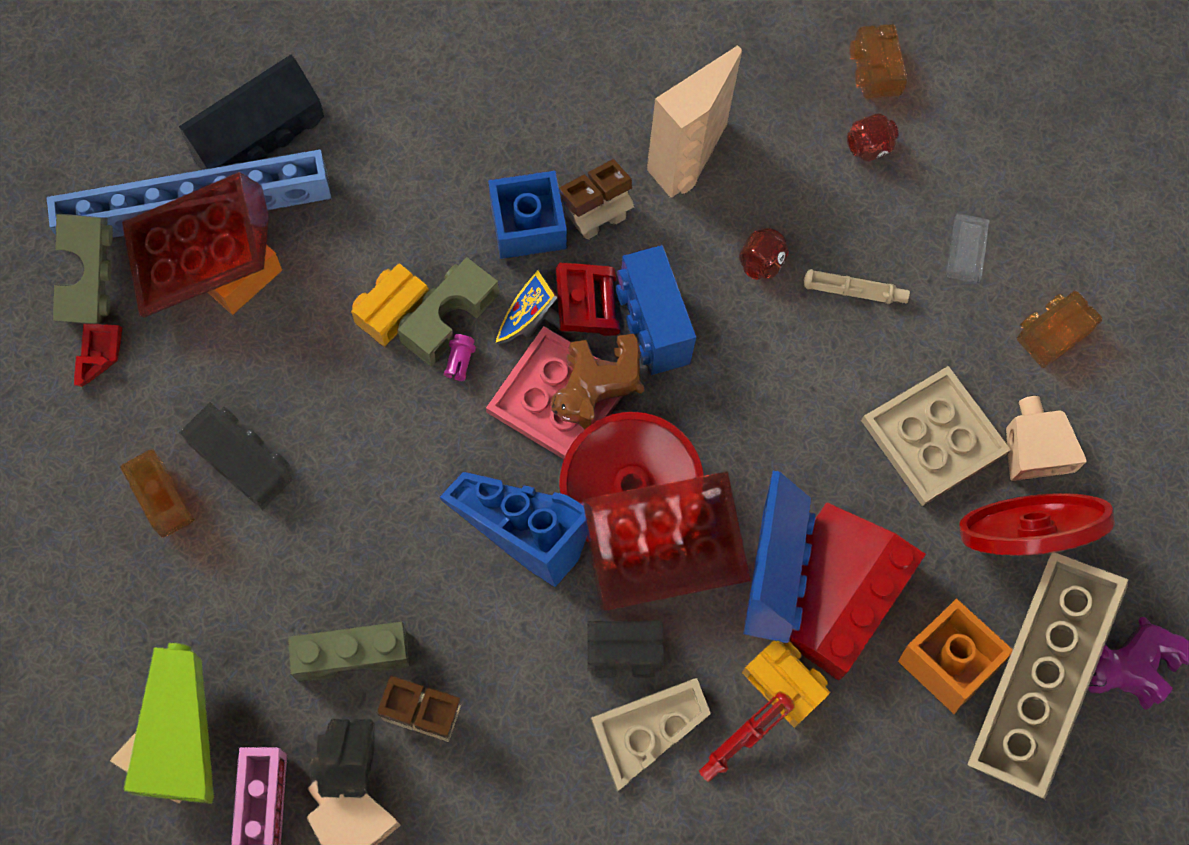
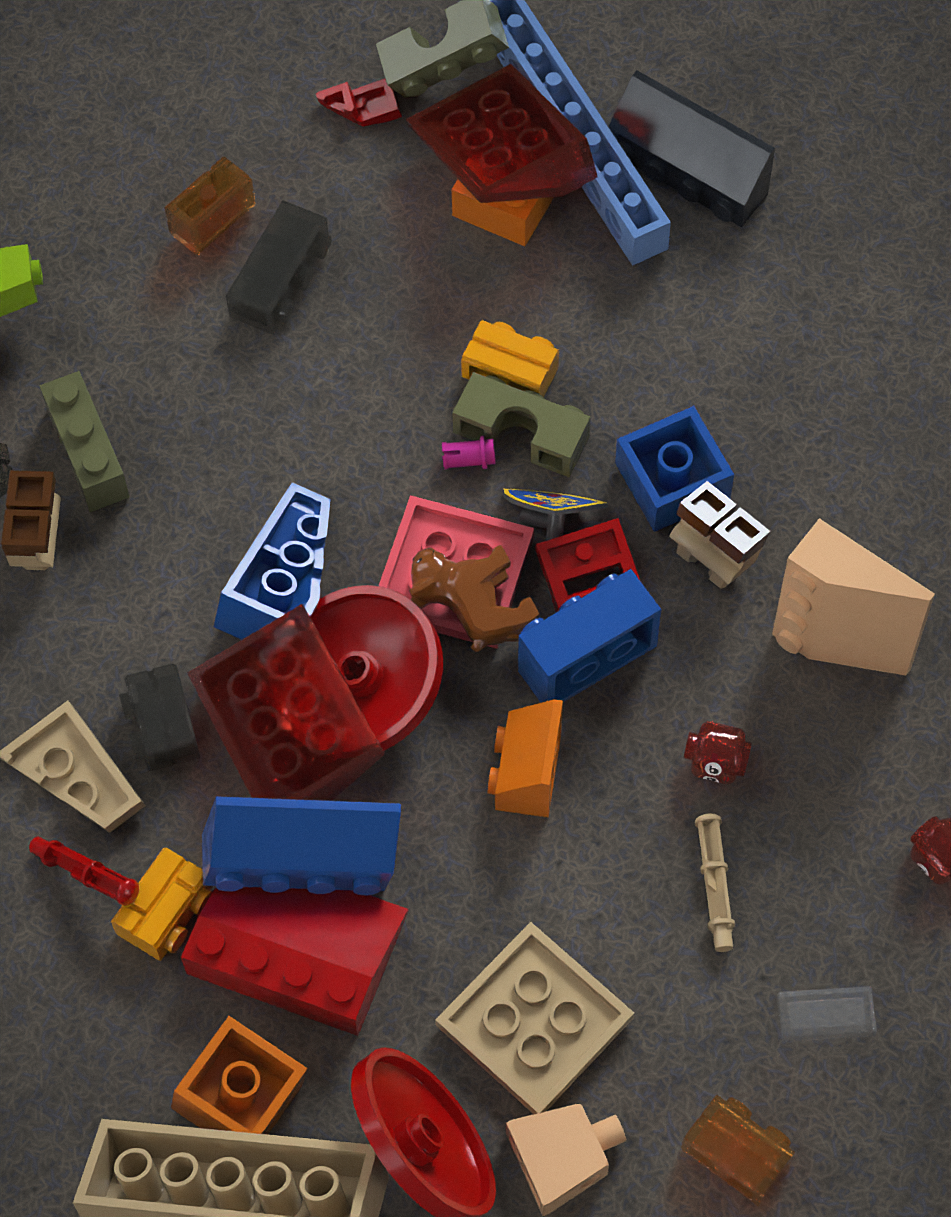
camera: 80 degrees right, 5 degrees down
(739, 378) = (527, 759): none -> orange slope

